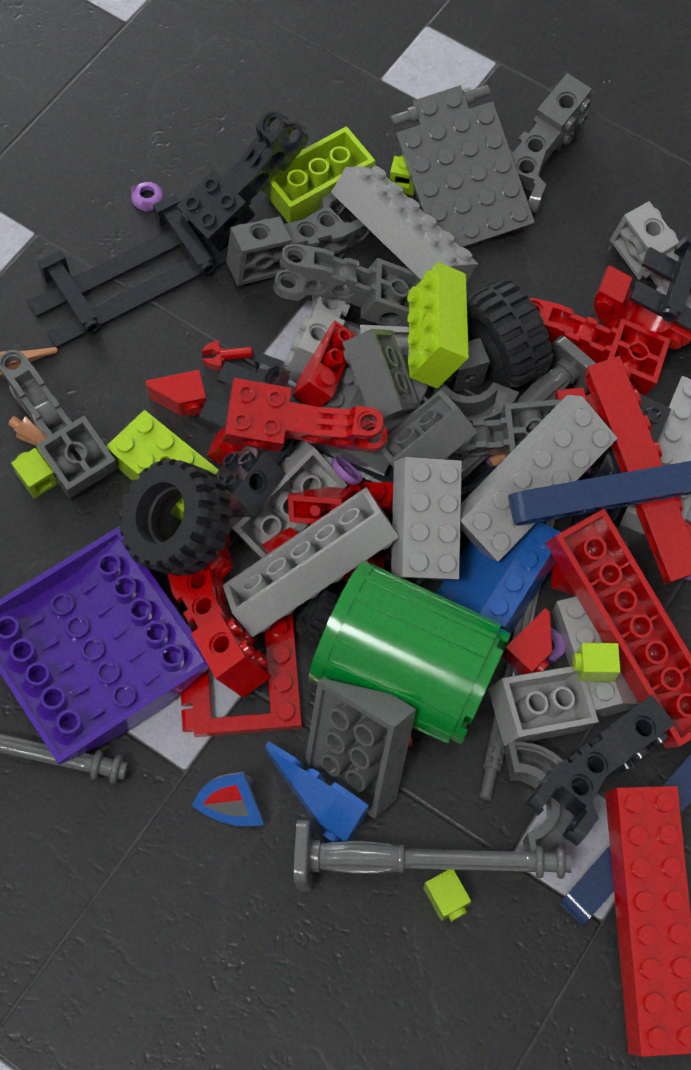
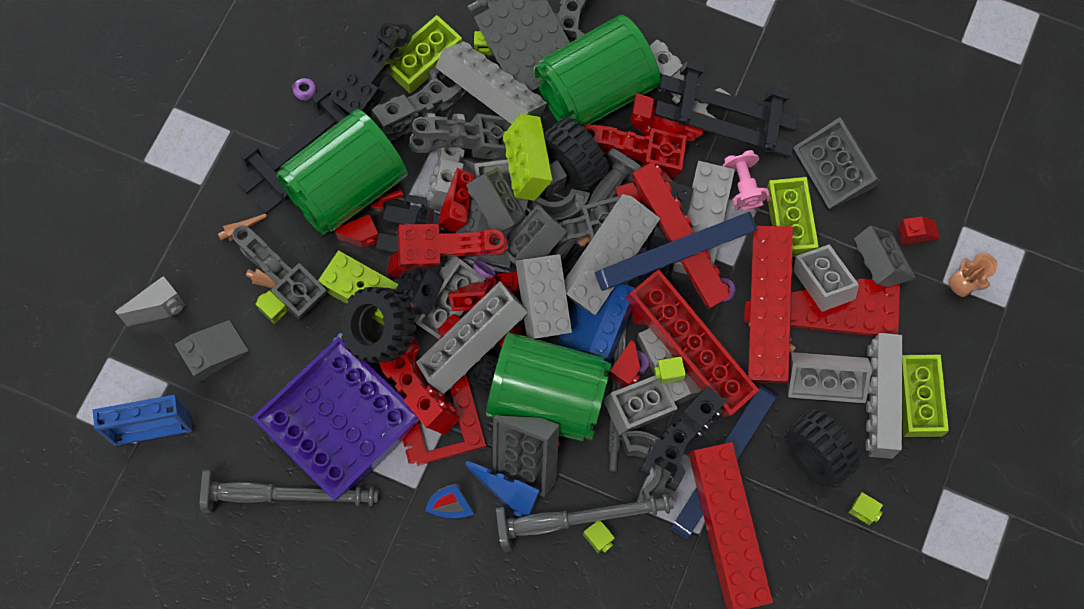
camera: 10 degrees left, 5 degrees up
(171, 302) = (342, 172): none -> green container
(560, 228) = (598, 72): none -> green container

